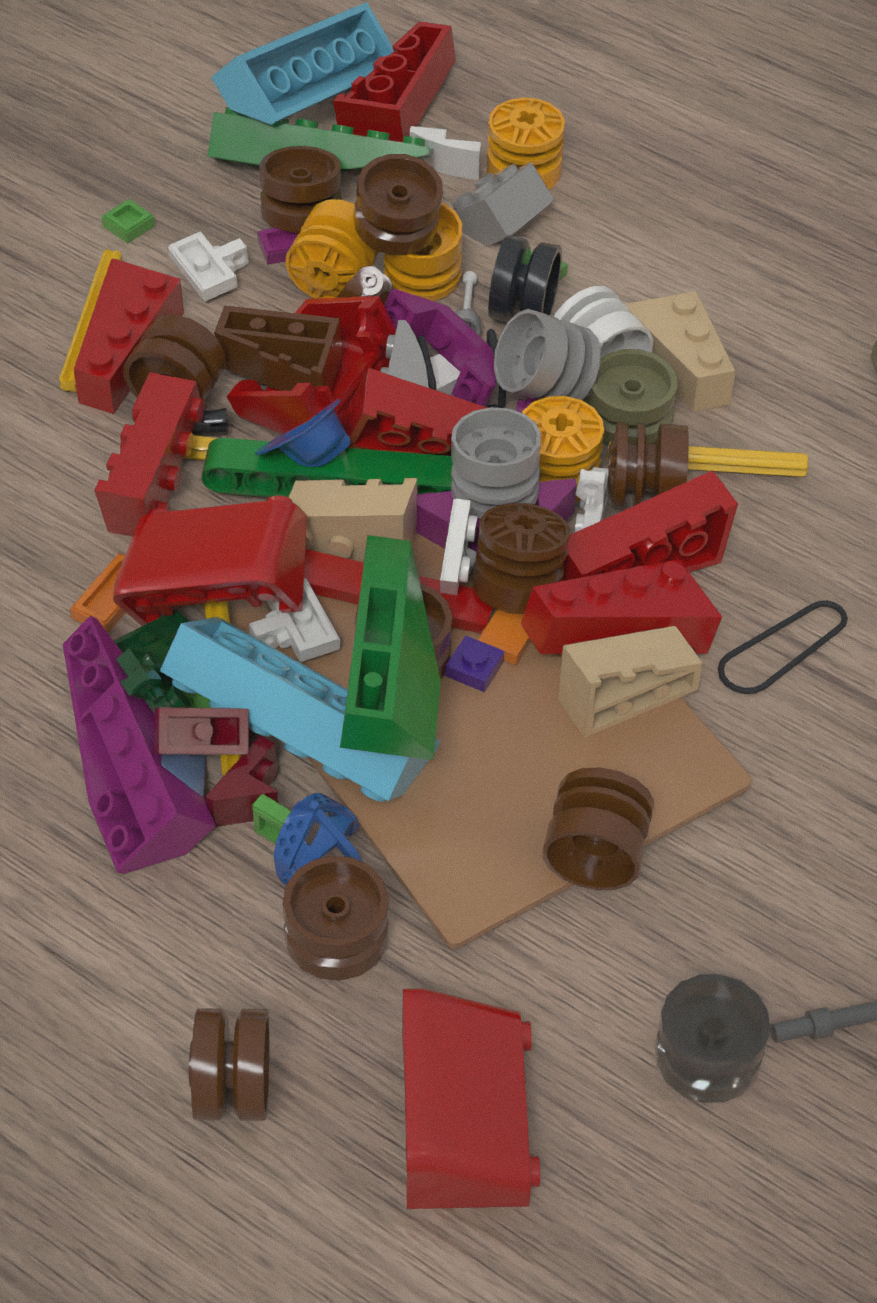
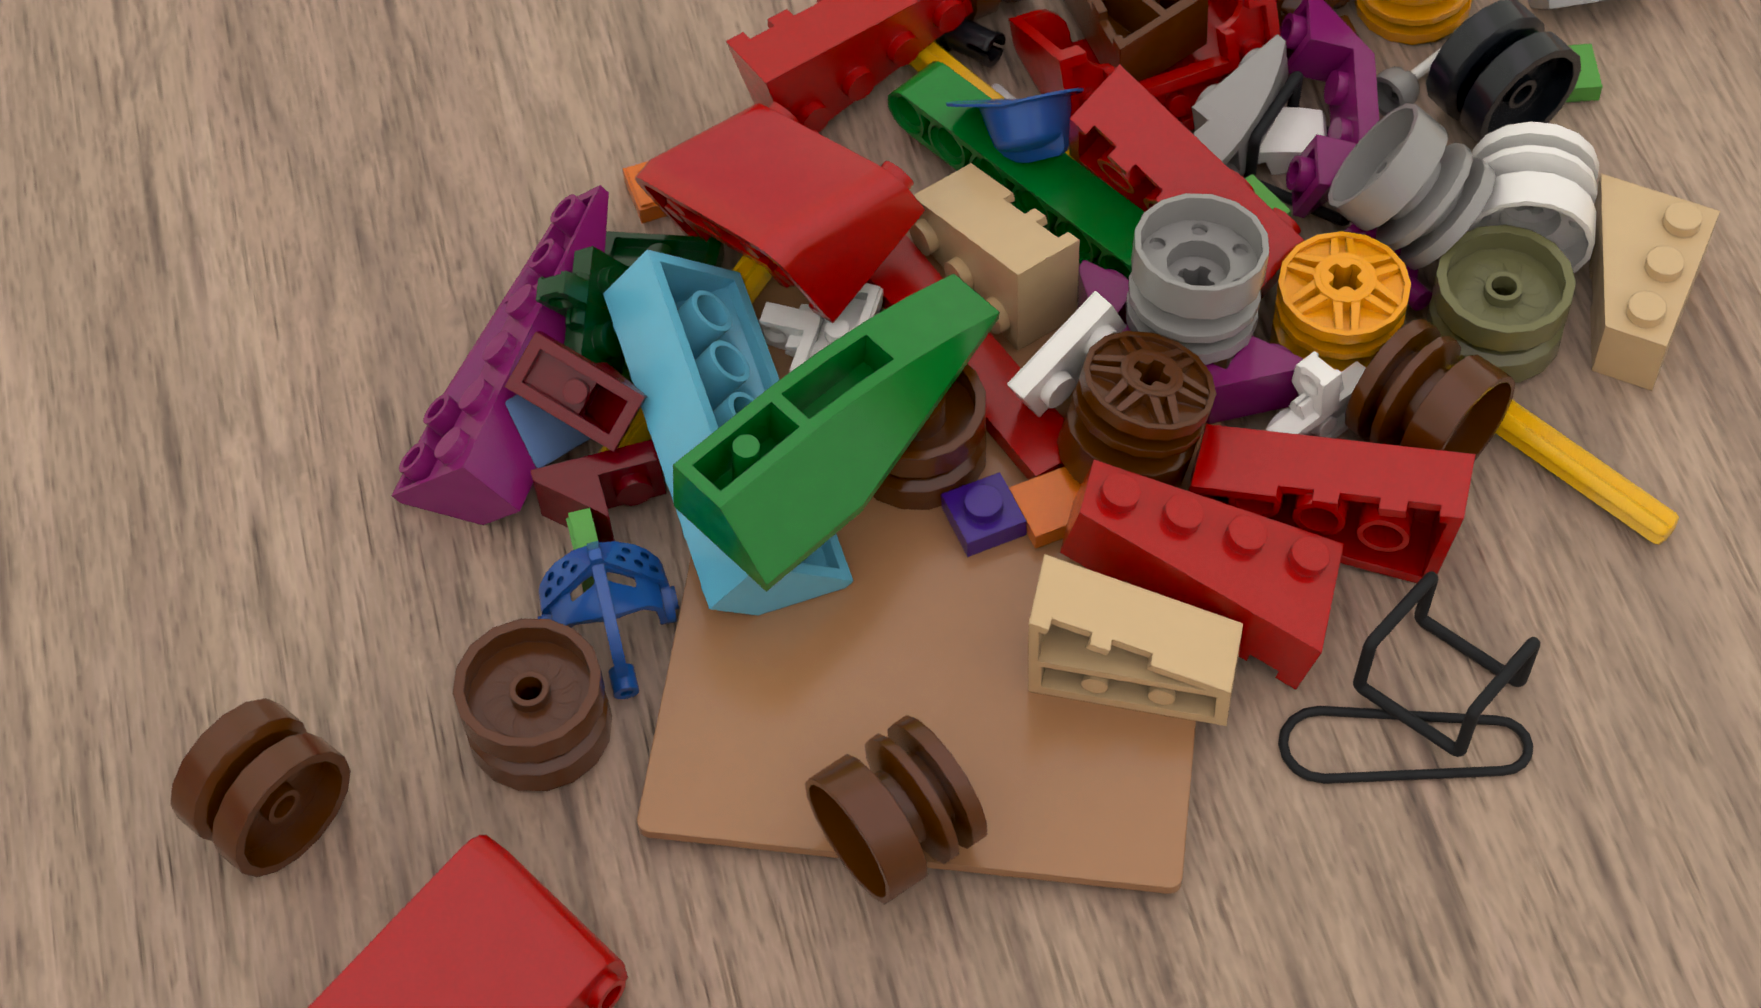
camera: 45 degrees right, 5 degrees up
(737, 577) = (1514, 672): none -> black piece

